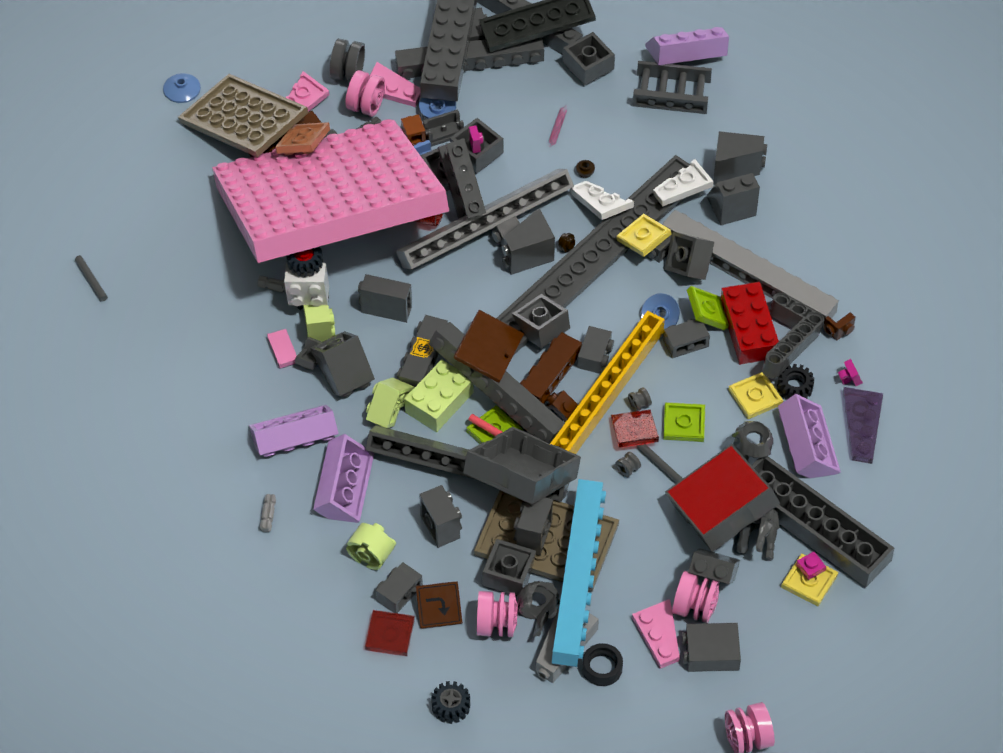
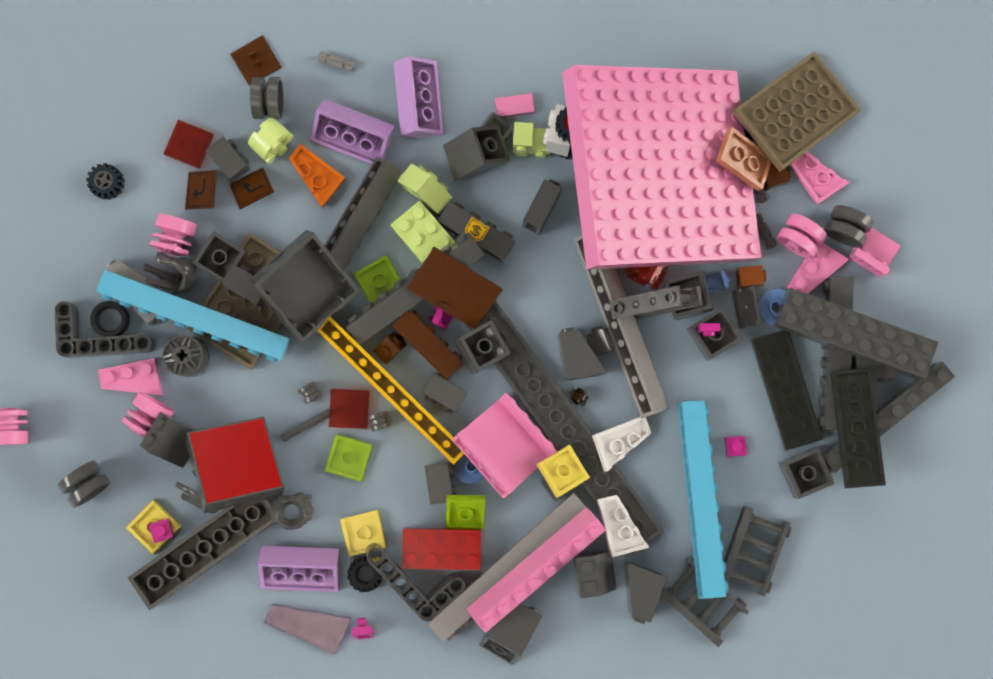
camera: 100 degrees right, 30 degrees up
(181, 88) = (850, 69): medium blue dish -> none
(281, 590) = (256, 59): none -> reddish brown piece
(325, 556) = (266, 97): none -> dark grey wheel
(373, 41) = (875, 253): none -> bright pink bracket
(396, 503) = (317, 174): none -> orange wing
(426, 556) = (251, 188): none -> reddish brown piece
(440, 515) = (286, 208): dark grey brick -> none
(484, 425) = (374, 276): coral bar -> none
(514, 87) = (786, 389): none -> pearl dark grey plate
(519, 366) = (441, 318): none -> dark pink tile
(558, 130) = (732, 424): bright pink piece -> none
(578, 118) = (735, 446): none -> dark pink plate
(585, 168) = (664, 441): dark brown plate -> none
(622, 577) = (190, 366): none -> dark grey wheel
(631, 286) = (504, 445): none -> bright pink panel
(632, 670) = (96, 343): none -> dark grey beam
(636, 127) = (701, 500): none -> medium azure brick
(688, 46) = (800, 580): lavender slope -> none
(689, 255) = (528, 509): dark grey slope -> none
(712, 647) = (101, 419): dark grey brick -> none
(745, 235) = (535, 569): none -> bright pink brick
(751, 116) = (699, 620): none -> dark grey fence
(785, 640) = (83, 484): none -> dark grey wheel
(810, 253) = (512, 633): none -> dark grey slope
(839, 328) = (417, 638): reddish brown bracket -> none

